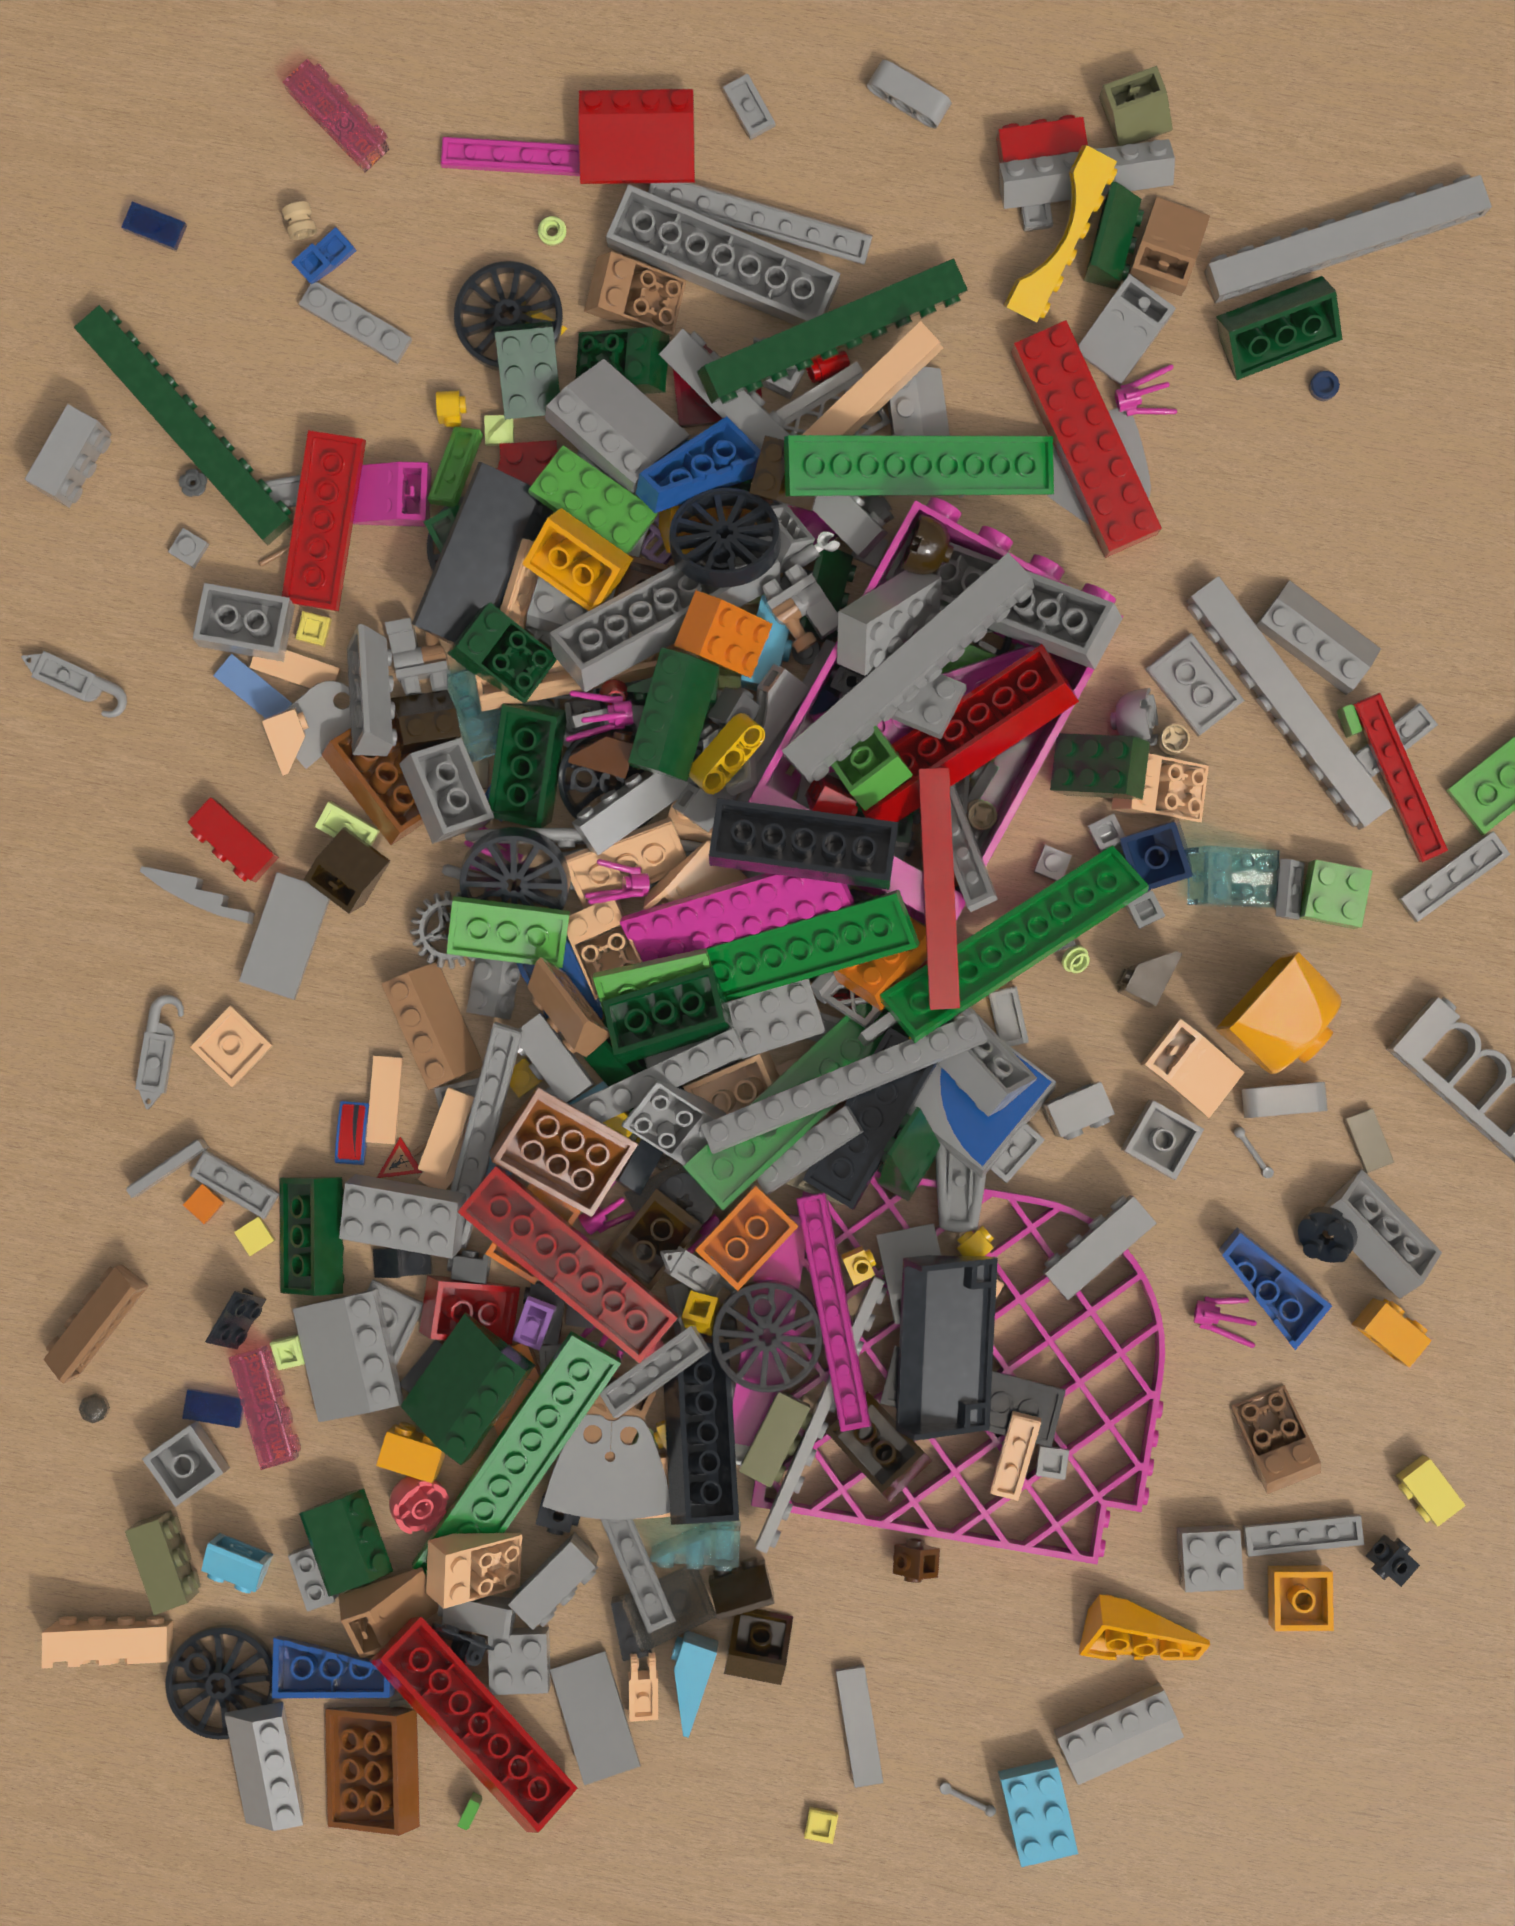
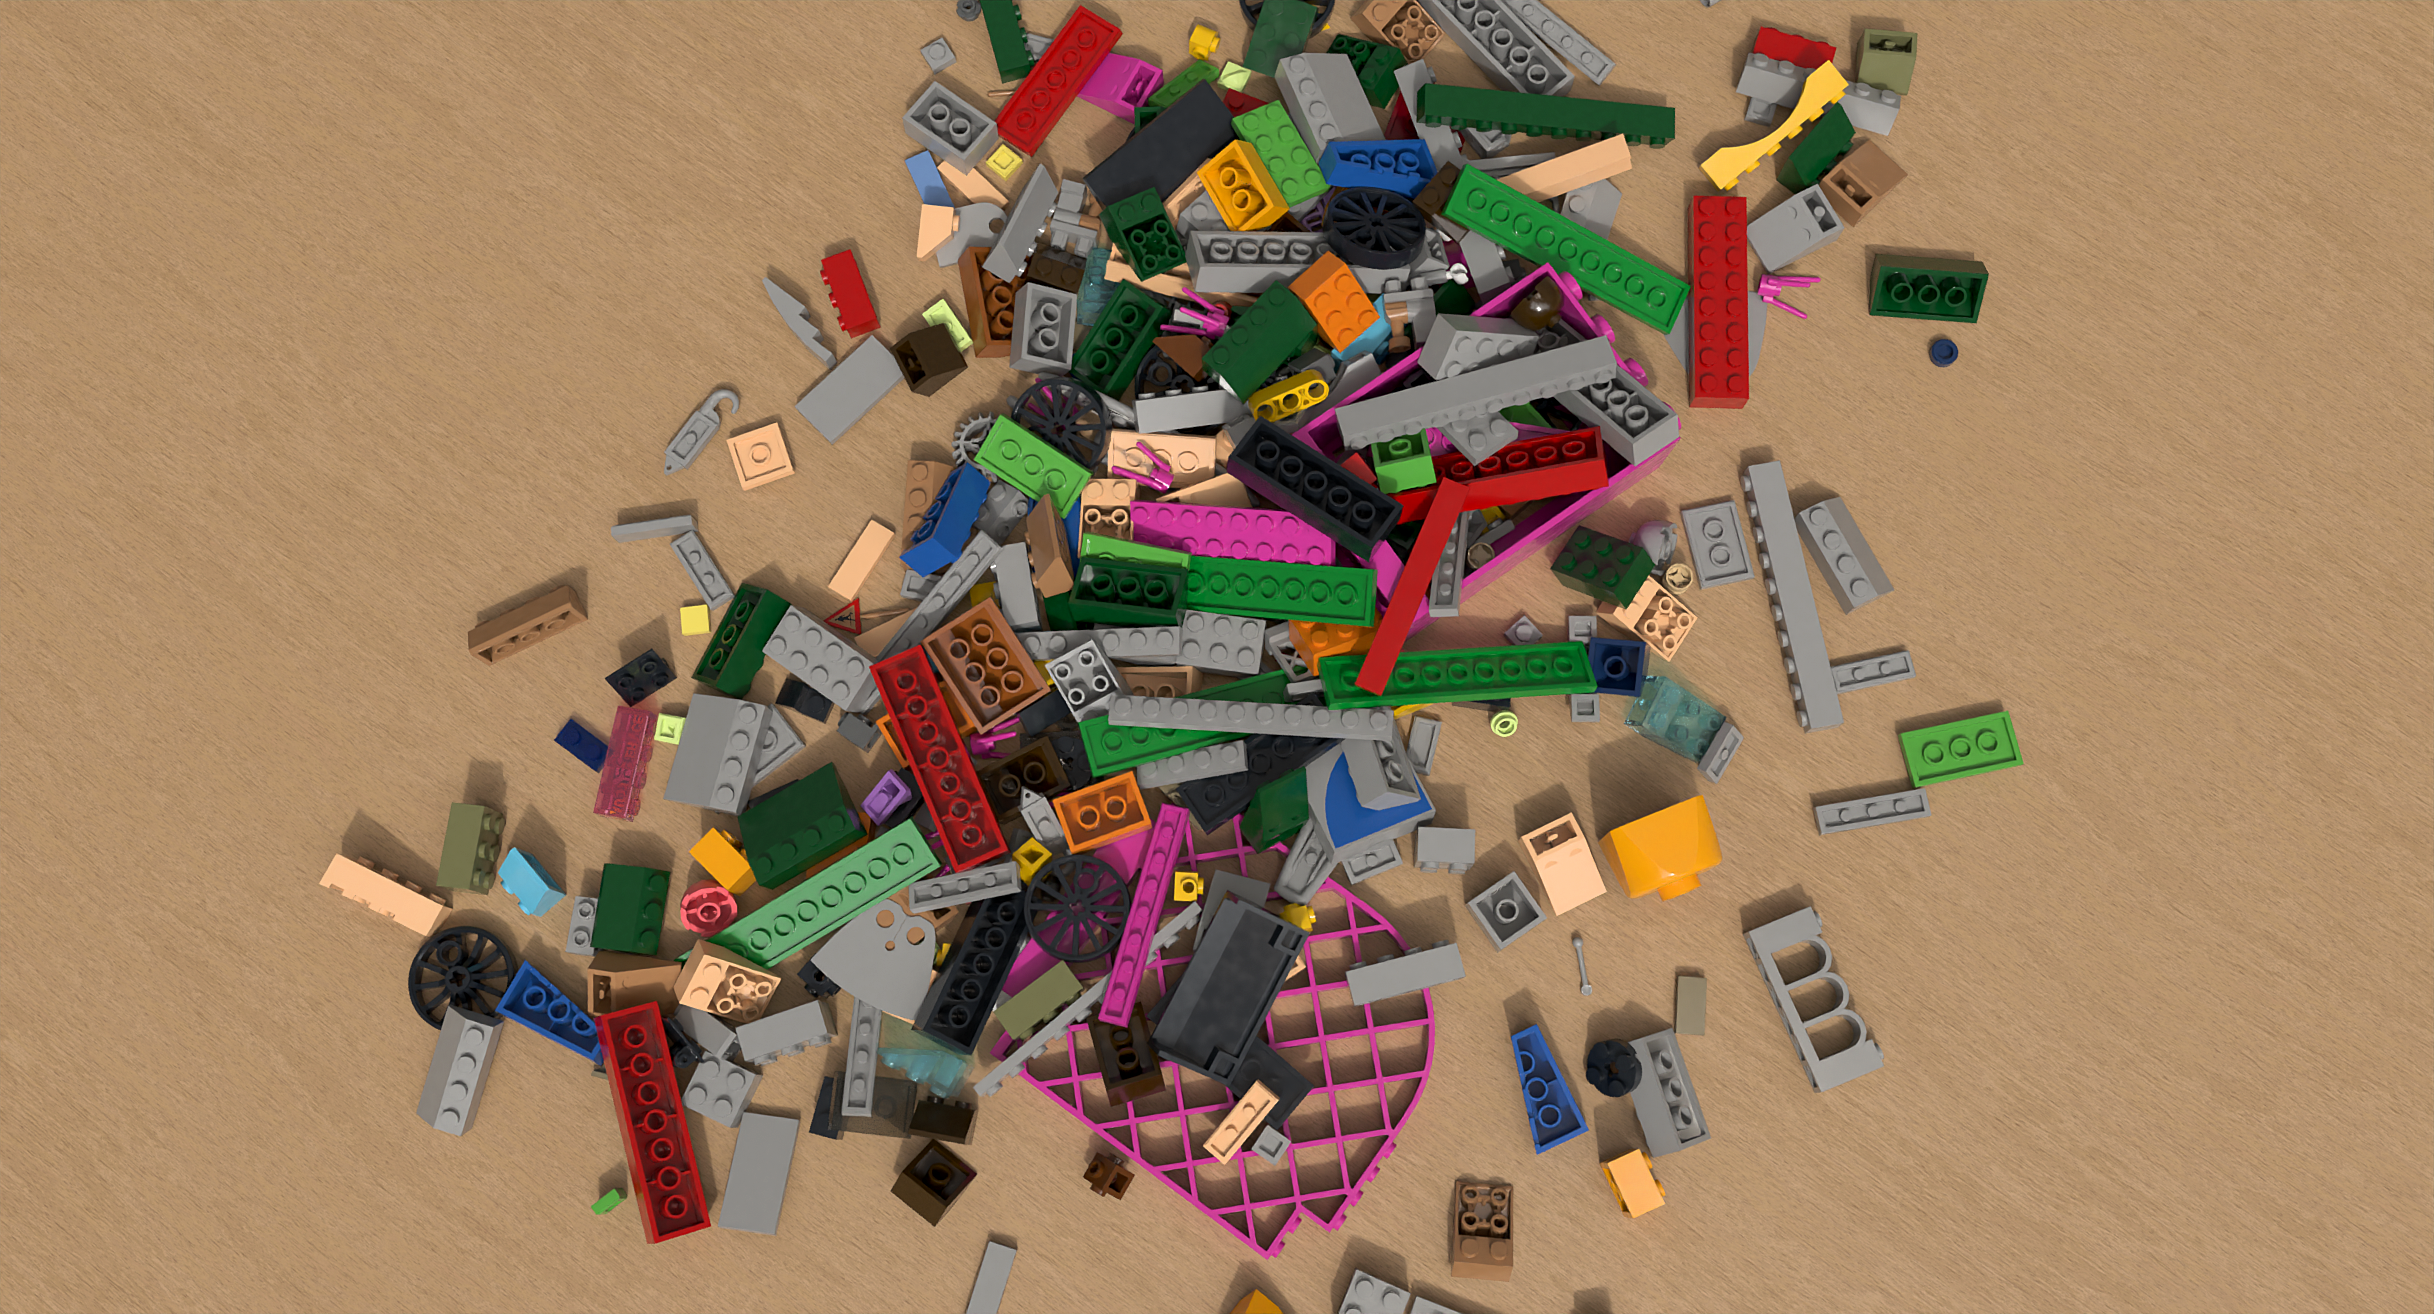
camera: 30 degrees right, 10 degrees down
(74, 680) = (792, 113): light grey plate -> none
(94, 1408) = (487, 696): clear smoke tile -> none
(186, 1463) = (535, 777): light grey brick -> none
(203, 1203) = (668, 573): orange tile -> none
(351, 1133) = (819, 574): slope -> none
(372, 1769) = (547, 1121): dark orange slope -> none
(446, 1133) = (895, 610): light nougat tile -> none
(454, 1026) = (947, 521): none -> blue wedge
(488, 1303) = (856, 767): red slope -> none
(643, 1690) = (812, 1168): light nougat hinge -> none
(693, 1664) = (861, 1175): medium azure slope -> none
(826, 369) = (1527, 145): red cone -> none
(1148, 979) = (1558, 765): slope -> none
(1208, 1313) = (1474, 1087): dark pink plant -> none
(1284, 1099) = (1631, 932): light grey beam -> none
(1335, 894) = (1758, 775): bright green brick -> none
(1347, 238) = (2018, 243): light grey brick -> none
(1349, 720) = (1839, 635): bright green tile -> none
(1400, 777) = (1861, 704): red tile -> none

